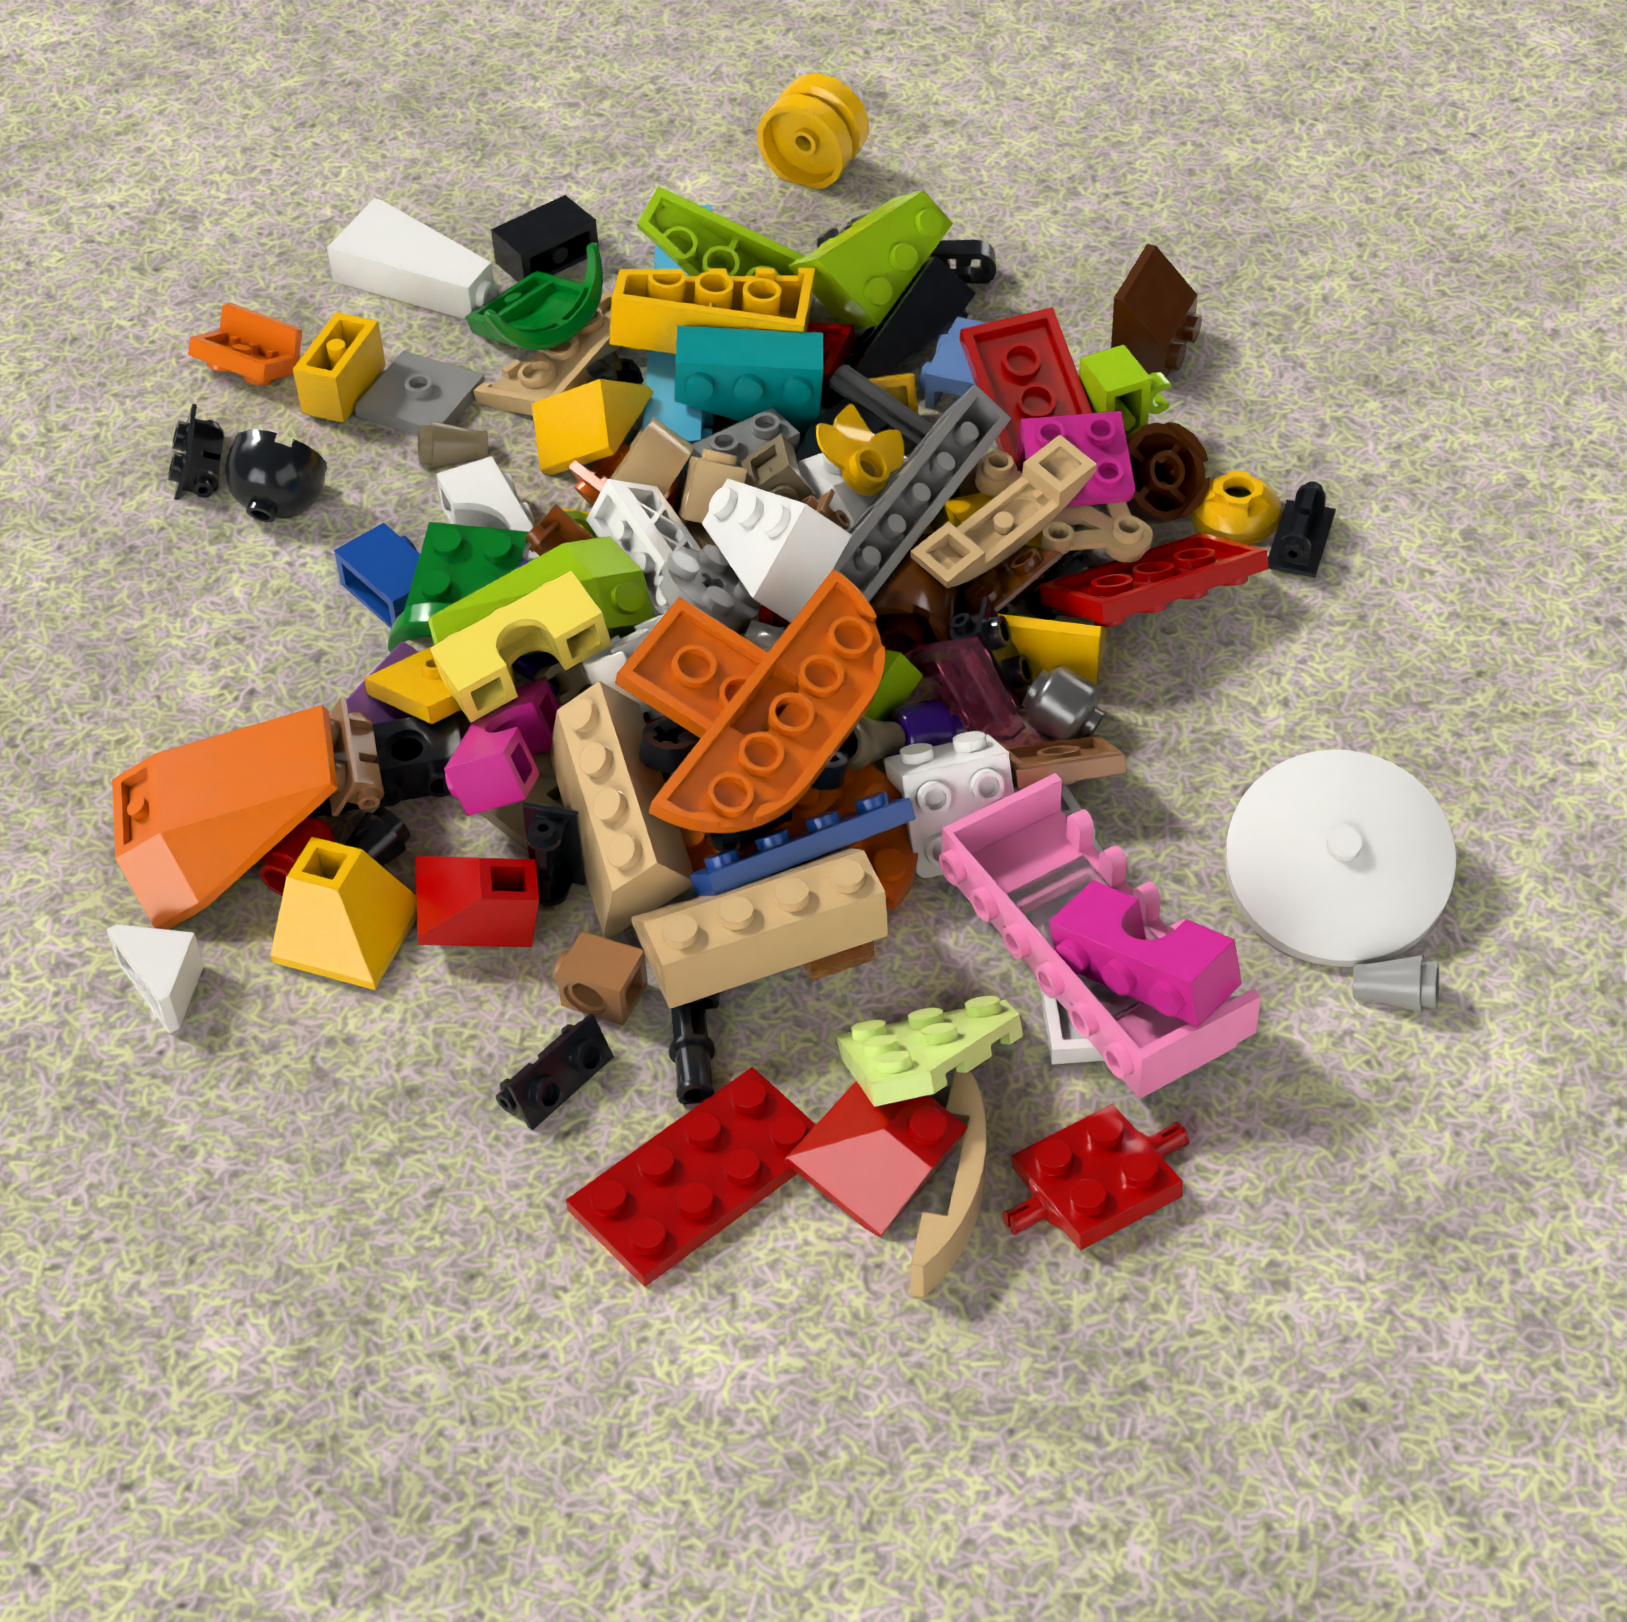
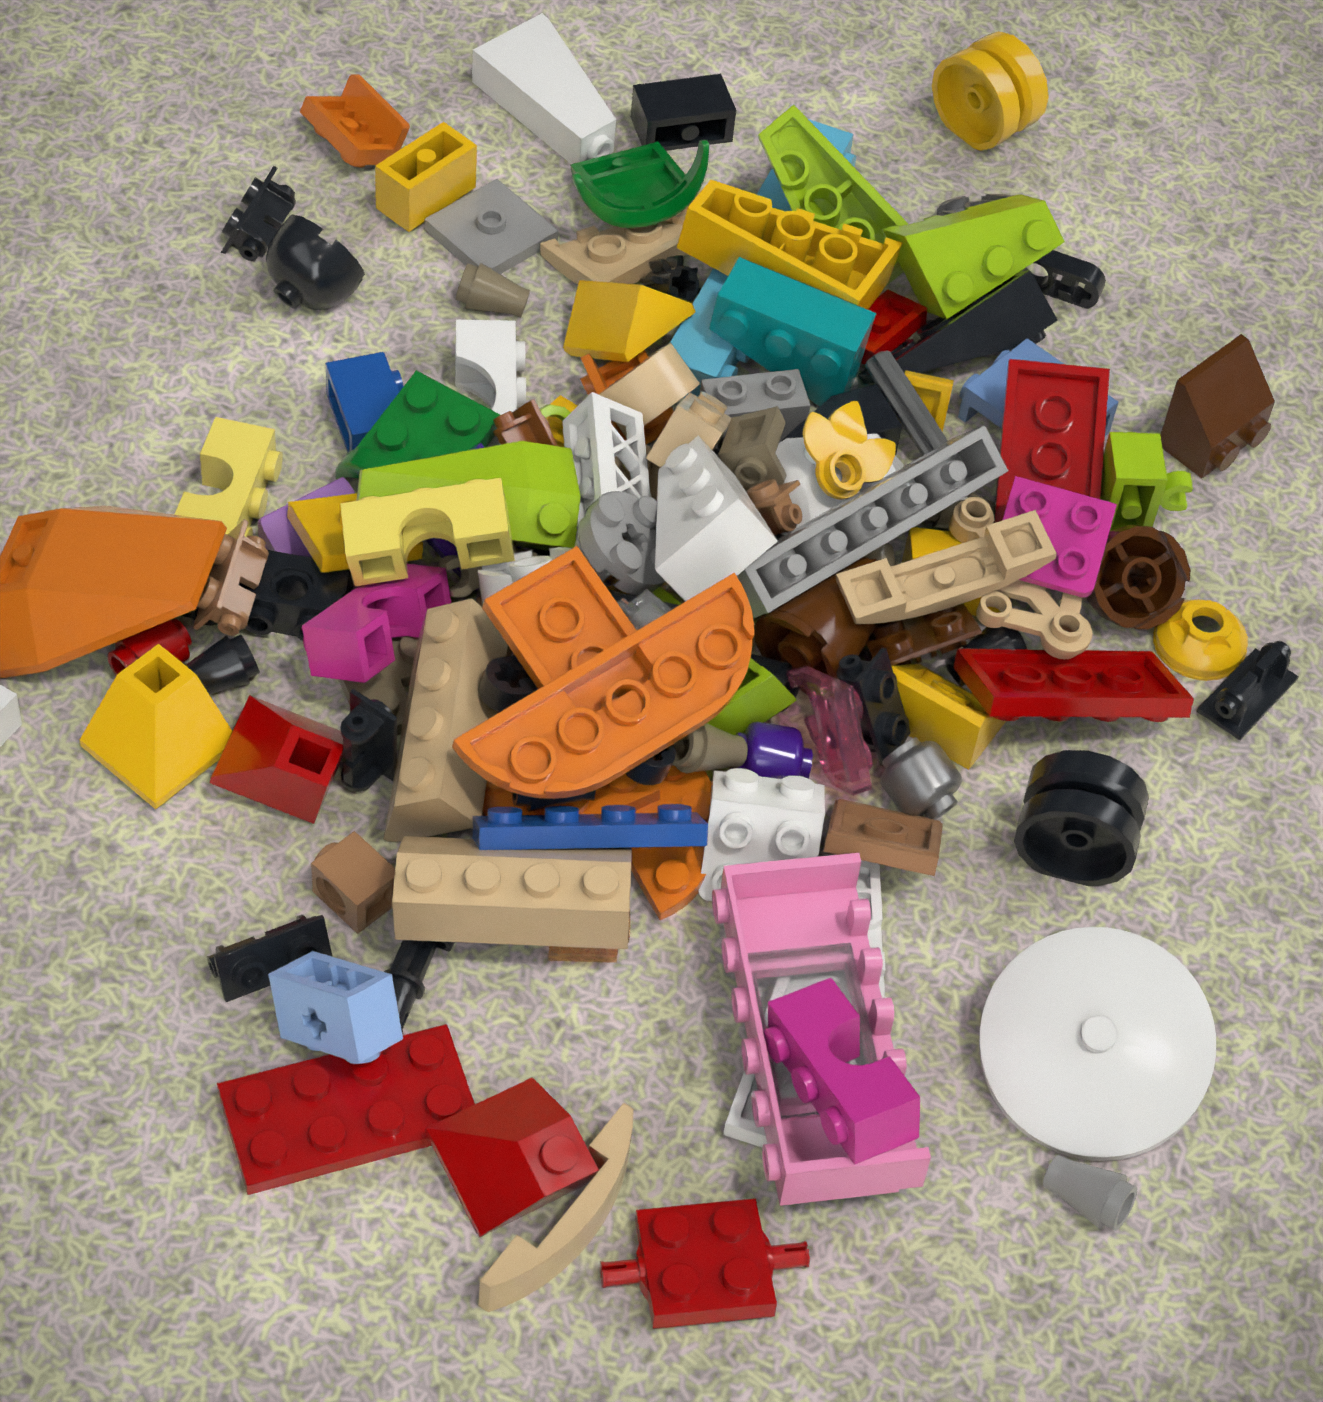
camera: 15 degrees right, 5 degrees up
(295, 667) = (241, 463): none -> light yellow arch
(649, 1084) = (336, 1007): none -> light blue brick
(915, 1054) = (586, 1073): yellowish green plate -> none
(1225, 680) = (1082, 817): none -> black wheel

